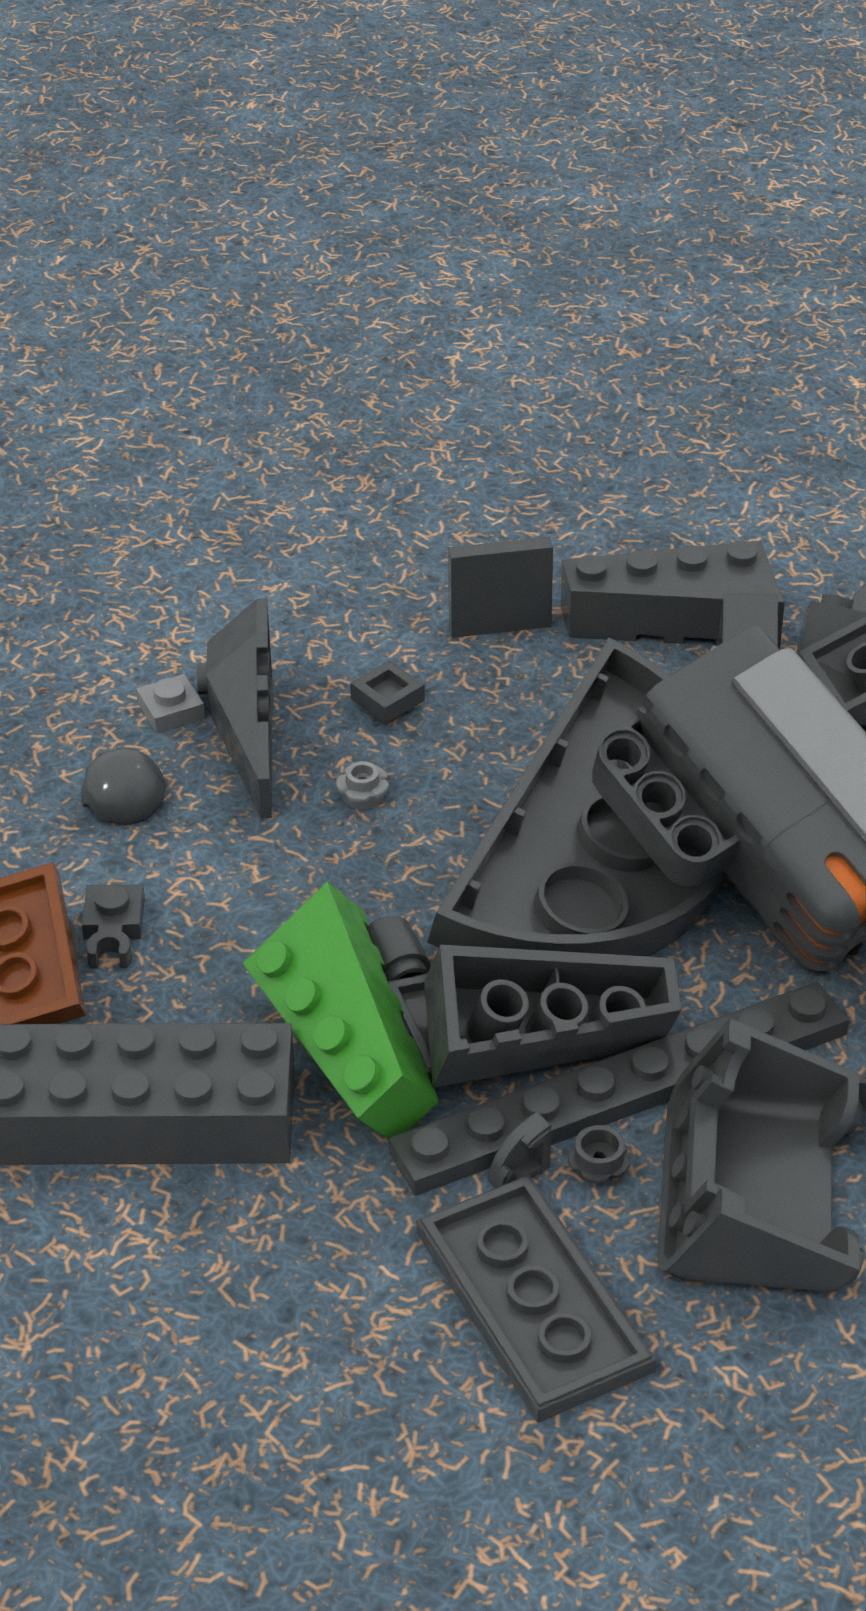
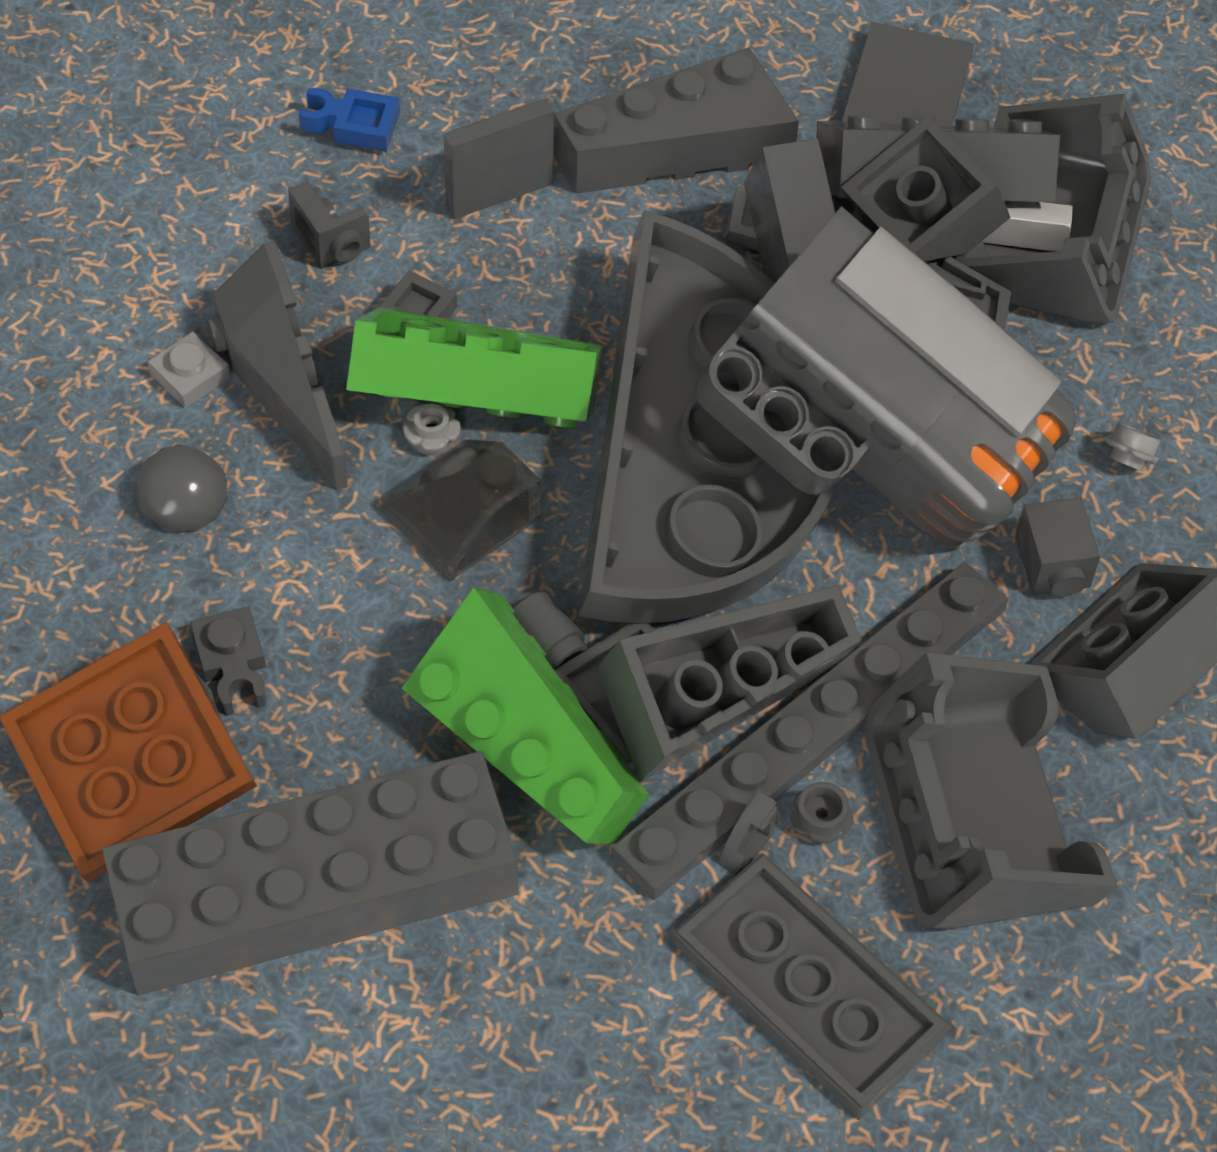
camera: 20 degrees left, 15 degrees up
(331, 622) = (323, 232): none -> dark grey bracket
(369, 847) = (464, 504): none -> clear smoke slope
(392, 547) = (356, 120): none -> blue plate
(411, 735) = (474, 366): none -> bright green wedge

